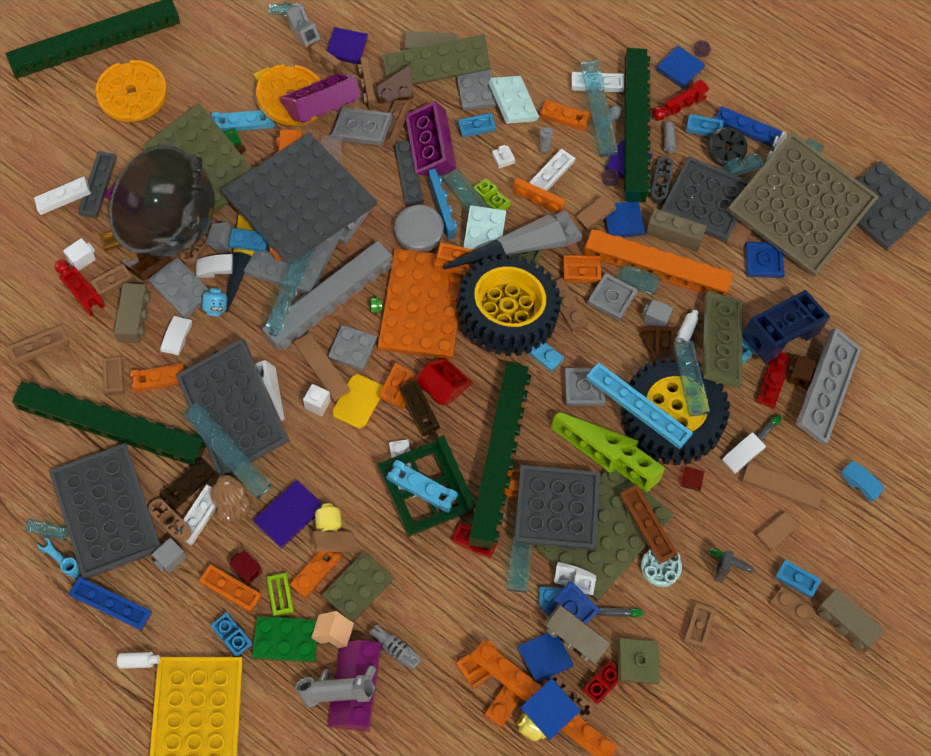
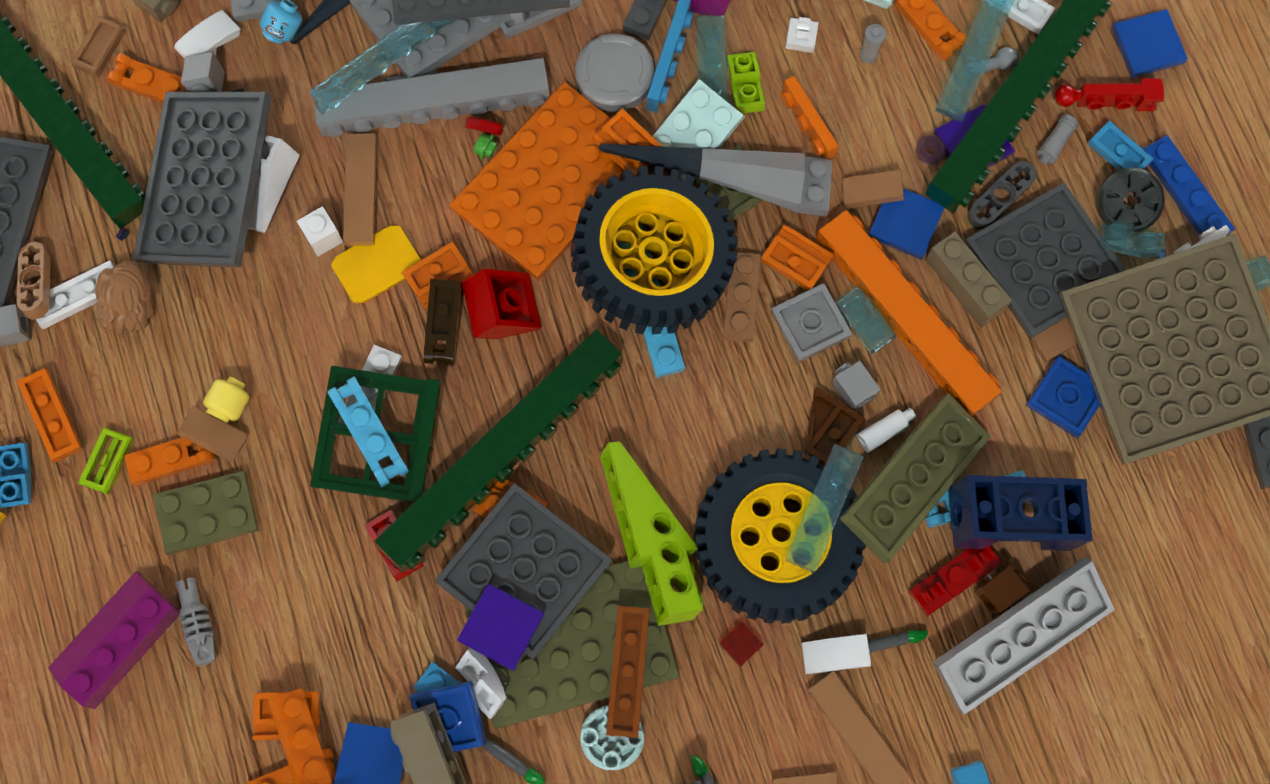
camera: 35 degrees right, 10 degrees up
(188, 484) = (91, 245): dark brown plate -> none
(189, 353) = (202, 73): none -> light grey brick
(227, 450) = (159, 232): clear light blue plate -> none
(245, 567) = (84, 399): dark red brick -> none
(284, 639) = (73, 523): green plate -> none
(288, 514) = (186, 361): dark purple tile -> none
(325, 690) = (74, 634): light grey piece -> none
(332, 628) = (133, 549): light nougat piece -> none
(352, 348) = (417, 187): light grey plate -> none
(367, 294) = (484, 125): none -> red tile
(519, 566) = (423, 620): clear light blue plate -> none
(553, 170) = (854, 94): white plate -> none
(568, 541) = (500, 627): none -> dark purple tile
(581, 391) = (682, 426): light grey plate -> none
(639, 405) = (723, 503): medium azure plate -> none
(702, 48) = (1203, 27): plate -> none

